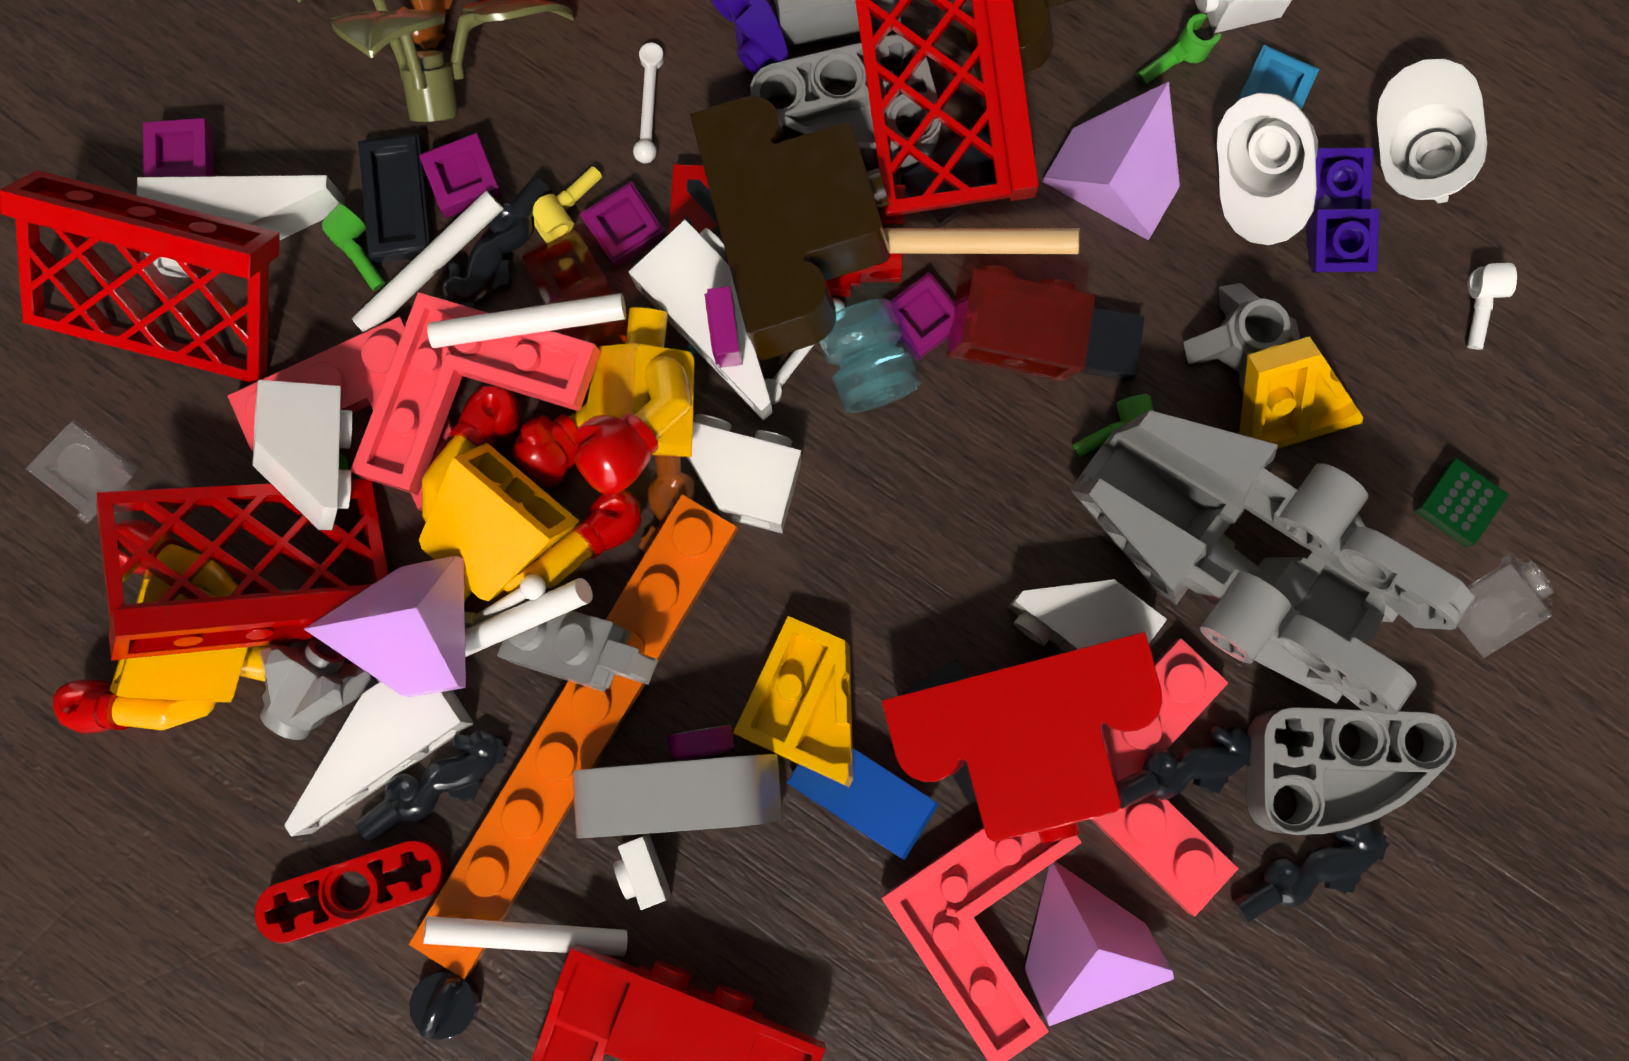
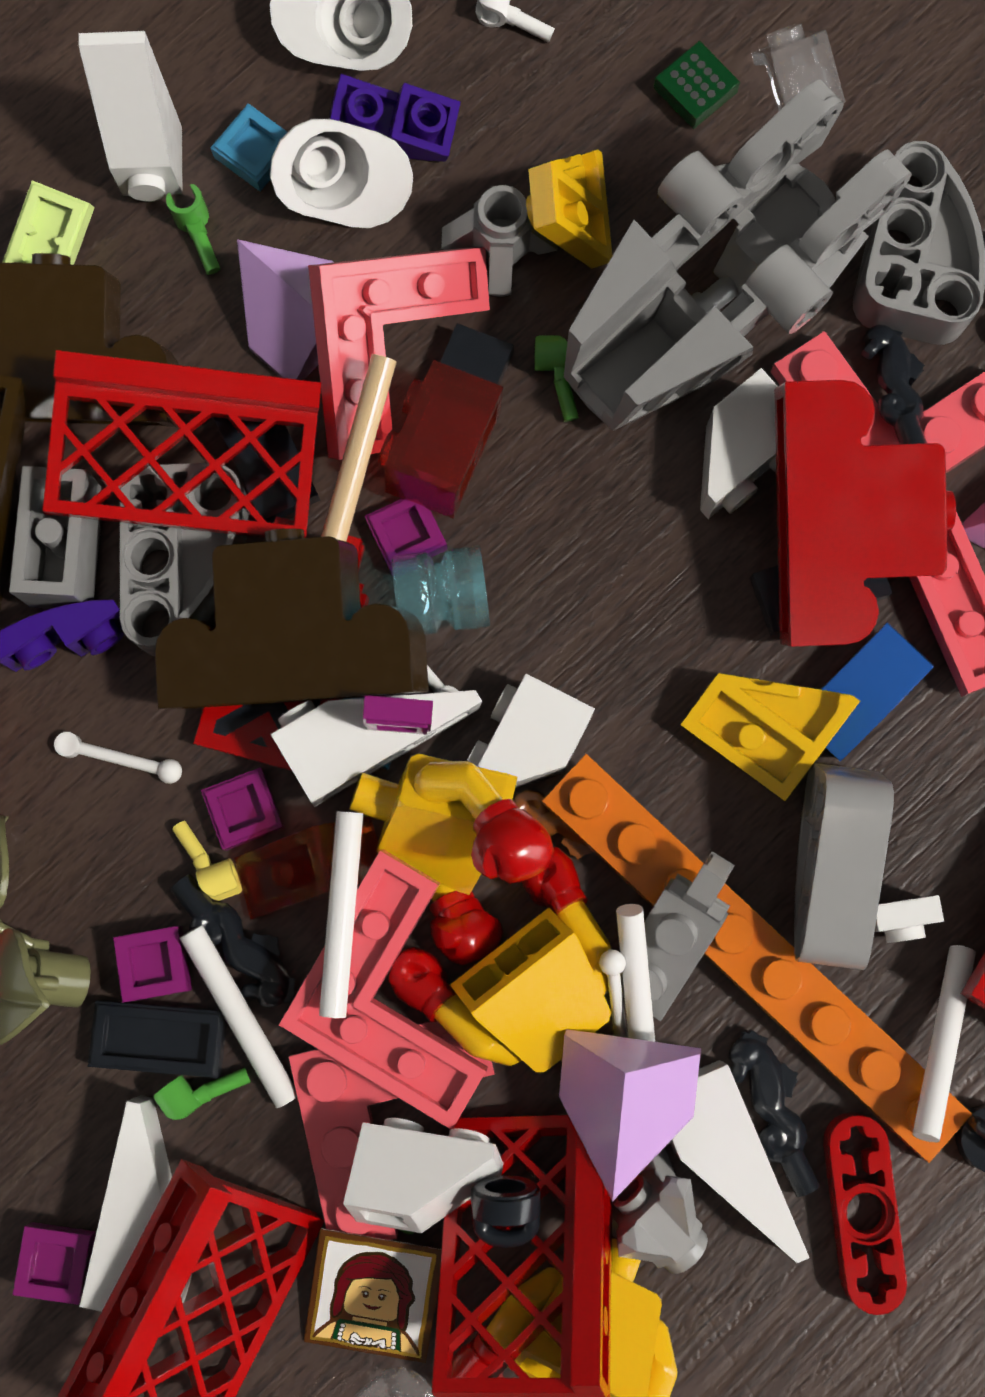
camera: 75 degrees left, 0 degrees up
(198, 435) = (373, 1295): none -> sticker
(281, 532) = (505, 1203): none -> black tile
(701, 742) = (787, 834): magenta tile -> none
(1141, 210) = (361, 296): none -> coral plate

